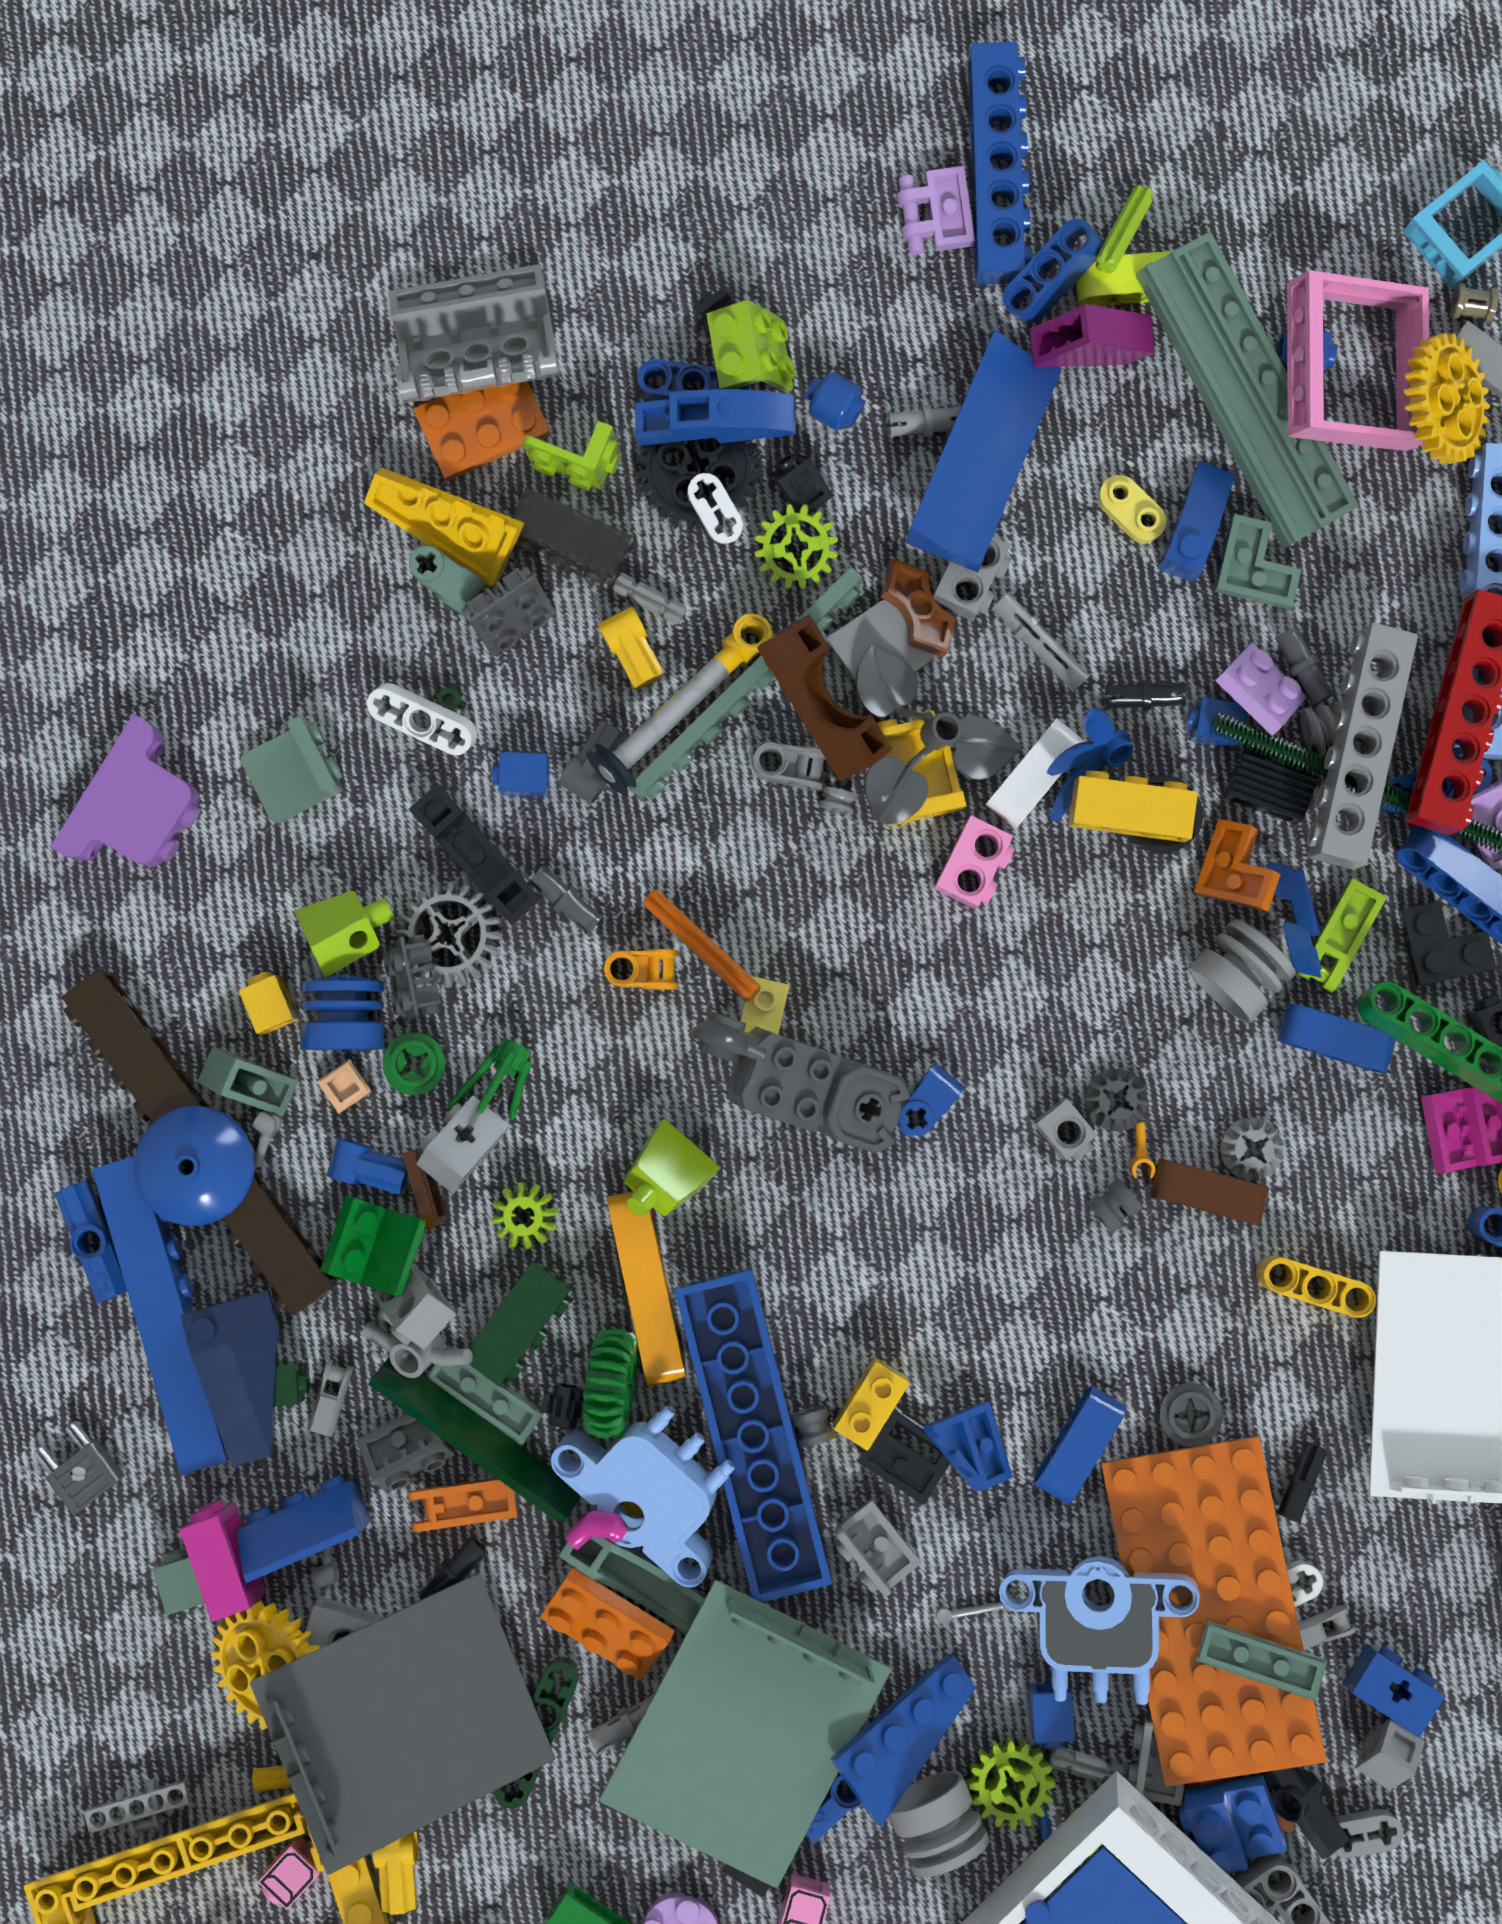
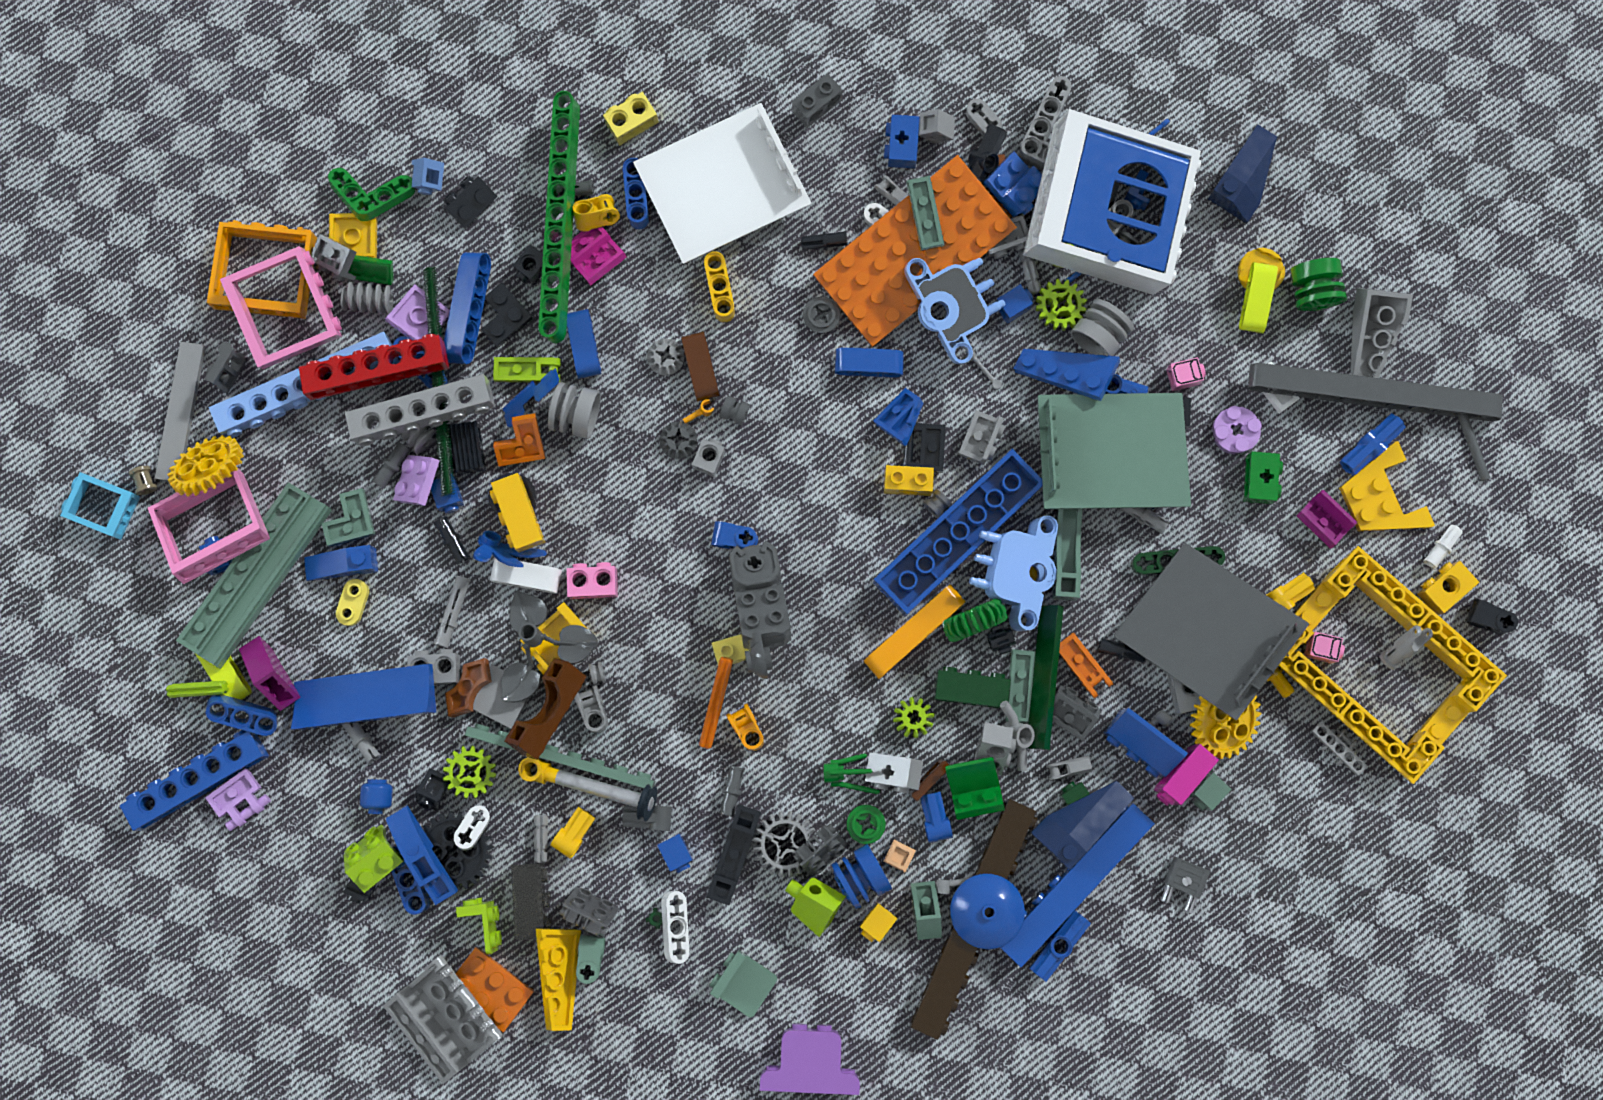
camera: 120 degrees left, 5 degrees down
(596, 1524) = (1051, 585): dark pink arm -> none
(606, 1624) = (1100, 554): orange plate -> none
(667, 1172) = (847, 654): lime torso -> none

